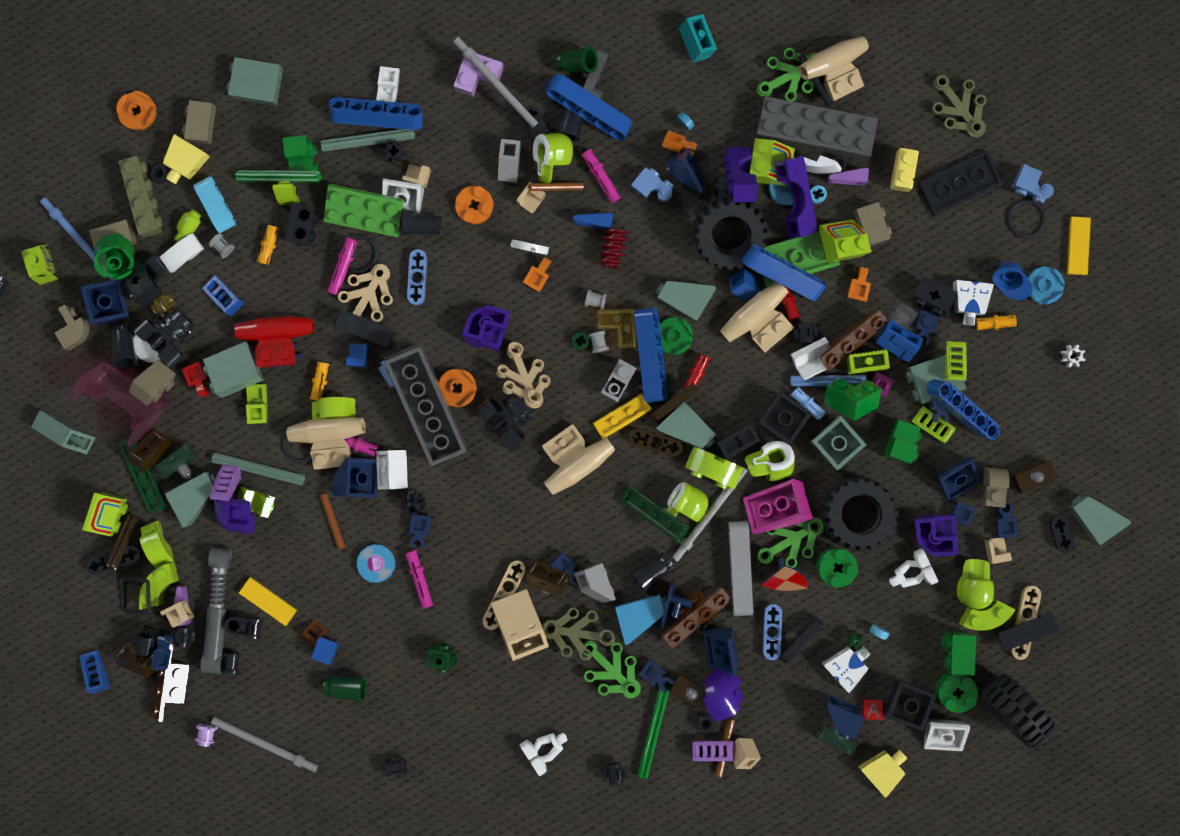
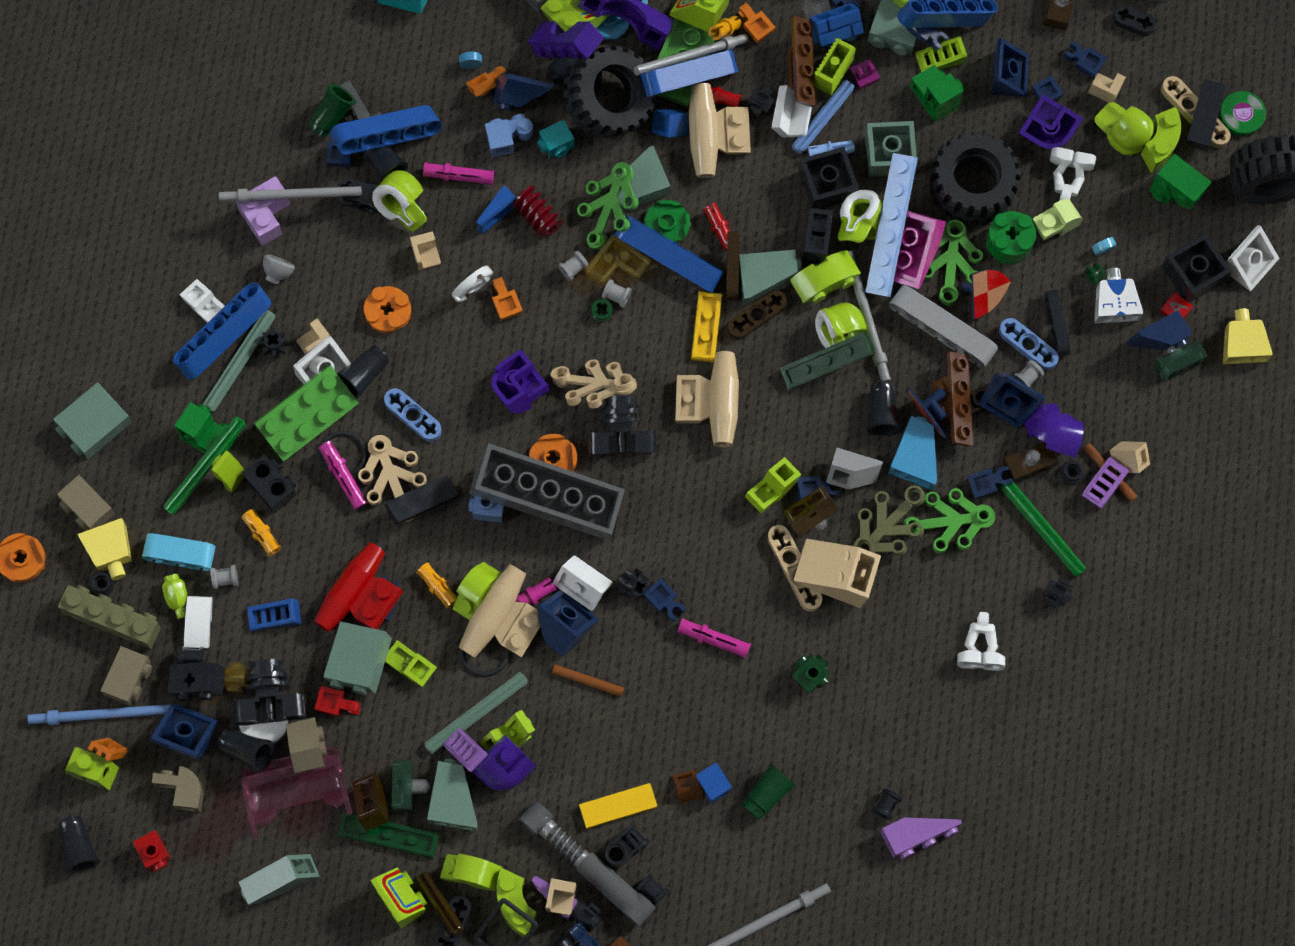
camera: 60 degrees left, 15 degrees down
(20, 342) = (152, 851): none -> red brick
(48, 257) = (109, 748): none -> orange tile
(114, 256) = (149, 681): green brick -> none
(358, 355) = (443, 528): blue panel -> none
(376, 563) = (664, 669): dark azure tile -> none
(388, 795) = (911, 833): none -> medium lavender slope
(446, 113) = (277, 268): none -> light grey brick
(509, 160) = (372, 242): light grey slope -> none
(544, 542) = (774, 486): none -> lime brick
(555, 186) = (434, 218): dark orange bar -> none
(618, 380) = (668, 298): light grey slope -> none
(654, 292) = (609, 202): none -> bright green plant
(672, 221) = (556, 140): none -> teal brick
(749, 647) = (1029, 373): none -> light grey bush
(781, 485) = (891, 224): none -> light blue plate
(827, 278) = (724, 44): none -> light grey bar
(838, 269) = (725, 27): none -> light orange pin
(852, 400) = (858, 105): green brick -> none
(872, 589) = (1058, 219): none -> yellowish green brick
(965, 698) = (1217, 206): green brick -> none
(996, 485) = (1042, 39): dark tan brick -> none
(1049, 654) = (1242, 113): none -> green tile

